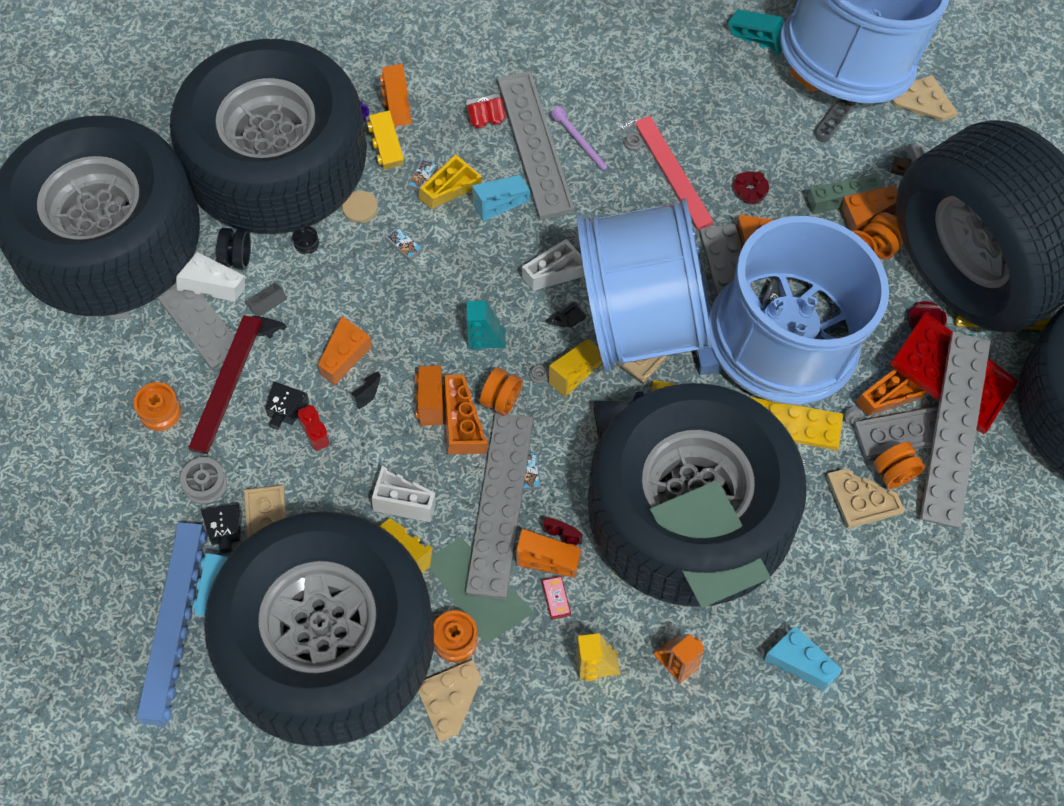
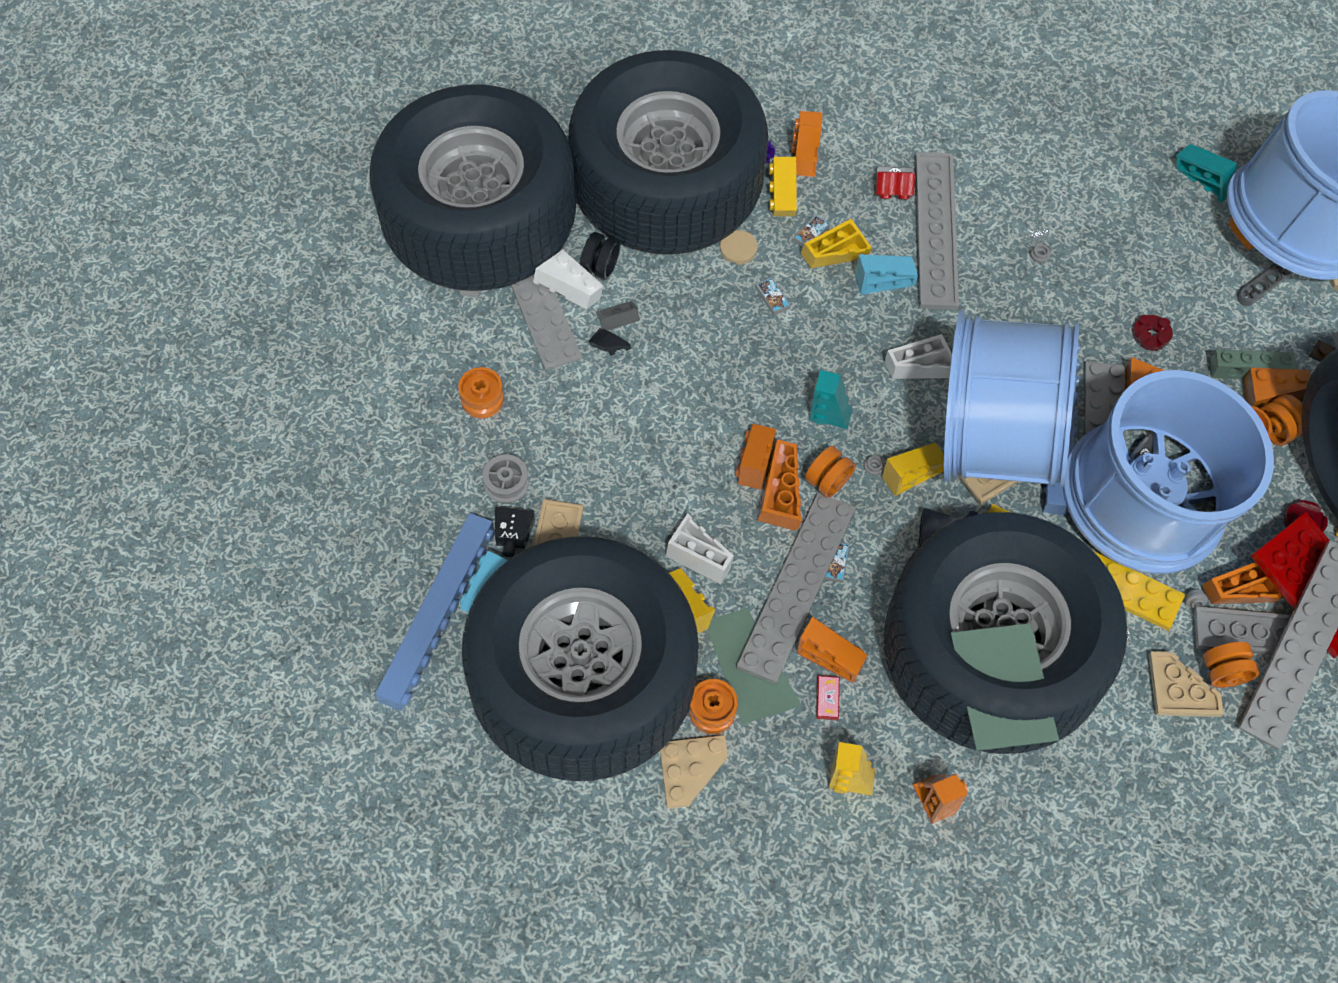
camera: 15 degrees right, 0 degrees up
(225, 385) = (554, 389): dark red tile -> none
(284, 404) = (607, 425): torso -> none
(305, 240) = (674, 267): black wheel -> none
(313, 427) = (630, 457): red brick -> none
(343, 351) = (681, 387): orange wedge -> none
(367, 392) = (693, 436): black slope -> none
(559, 115) = (970, 206): lavender piece -> none
(568, 317) = (920, 416): black slope -> none
(569, 533) = (860, 636): dark red slope -> none
(673, 172) = (1074, 295): coral tile -> none
(804, 659) = (1070, 837): medium azure wedge -> none

